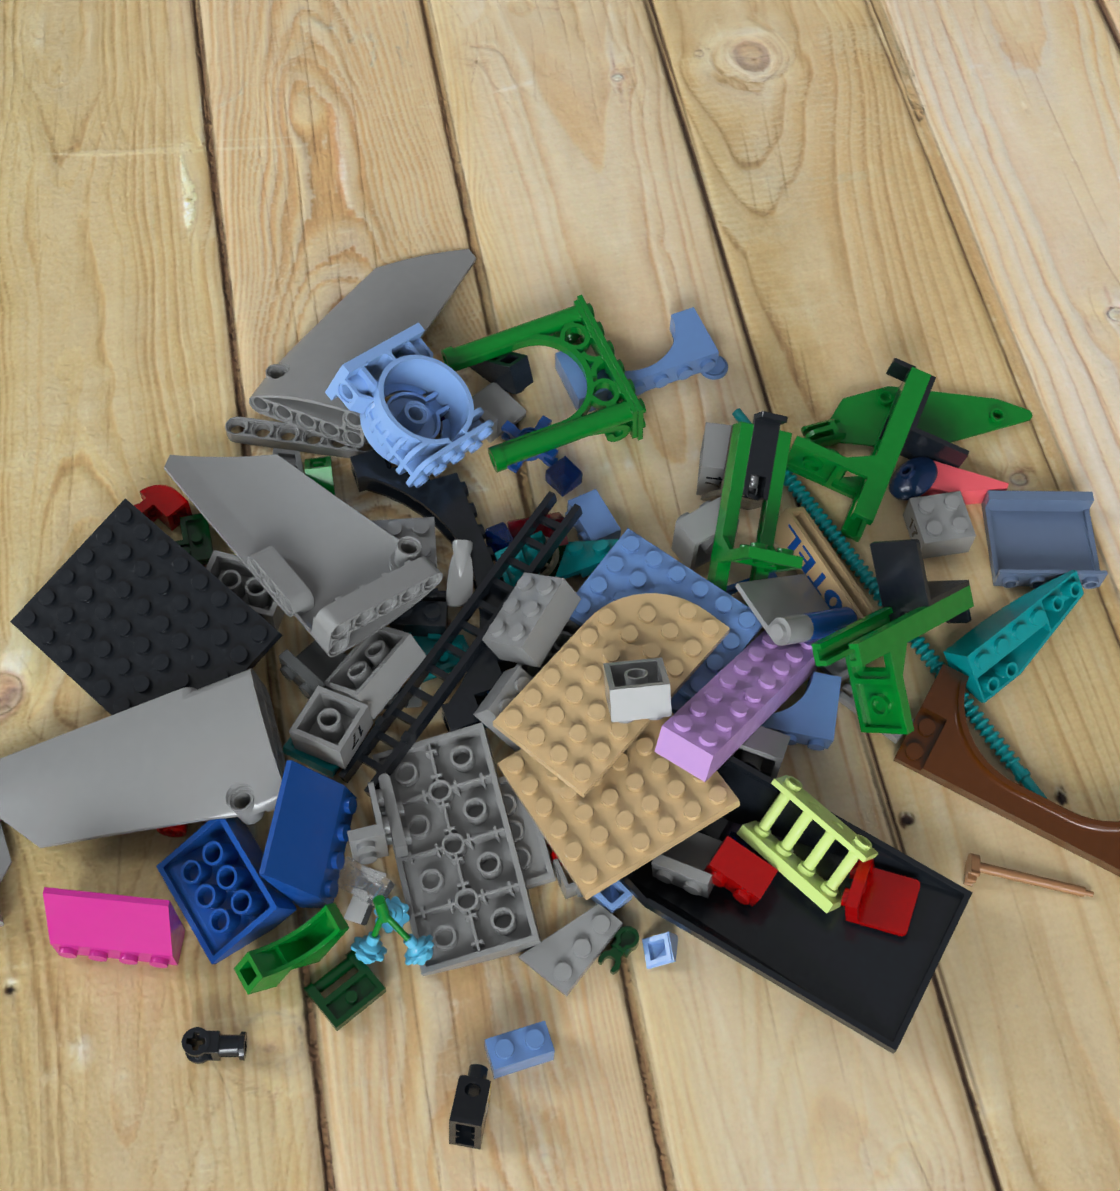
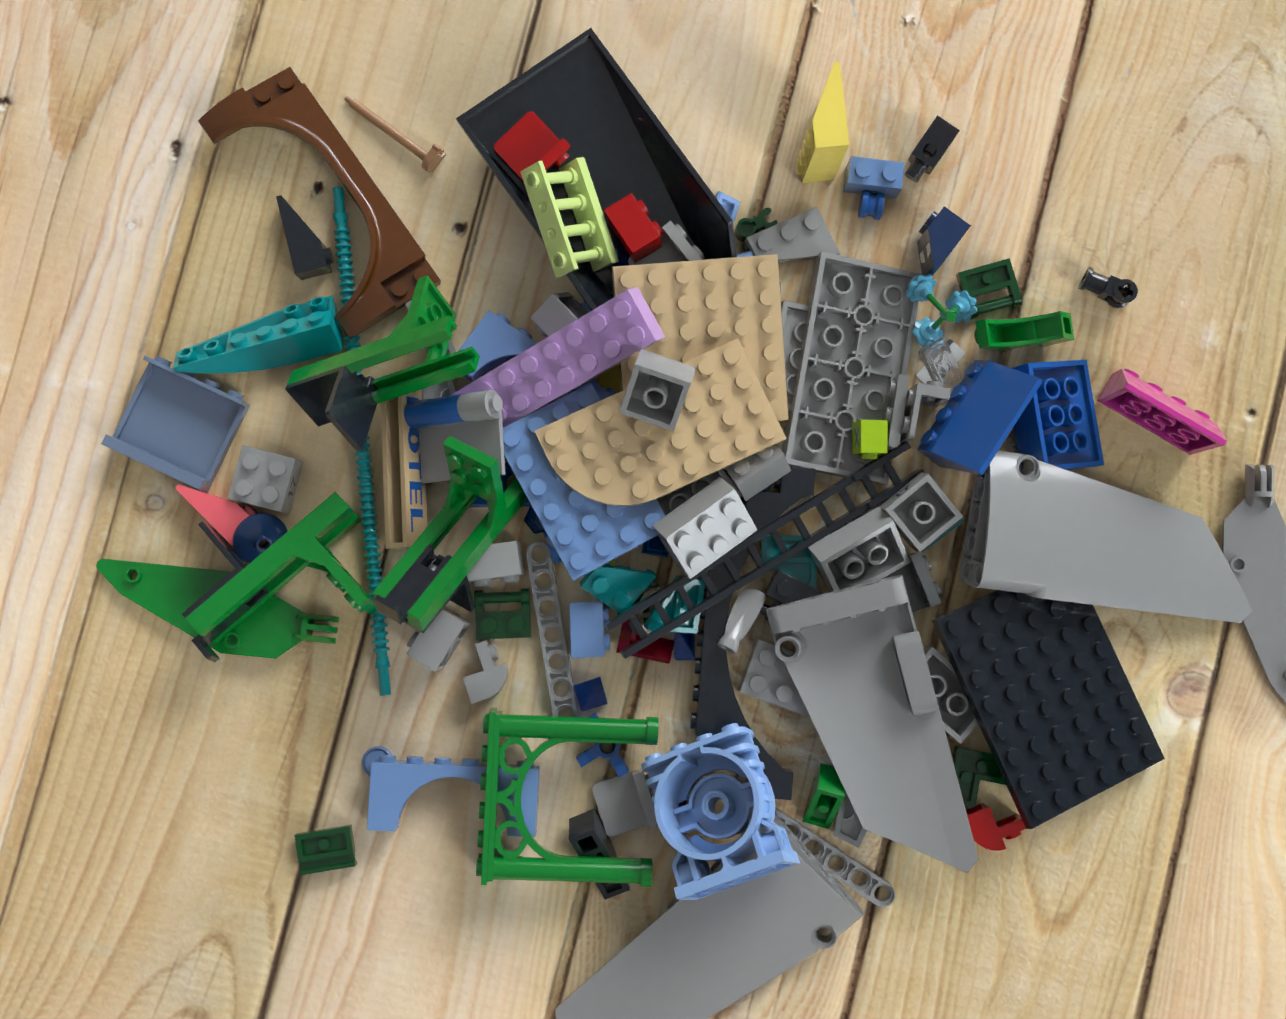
camera: 155 degrees left, 25 degrees up
(409, 778) = (869, 438): none -> lime brick
(419, 1006) = (939, 238): none -> dark blue slope
(508, 1018) = (871, 205): none -> blue wheel
(592, 1042) = (828, 134): none -> light yellow slope
(618, 498) = (554, 620): none -> light grey beam
(659, 454) = (492, 678): none -> light grey brick
(667, 503) = (502, 623): none -> dark green plate
(718, 292) = (325, 849): none -> dark green plate
(1038, 734) = (307, 252): none -> black slope

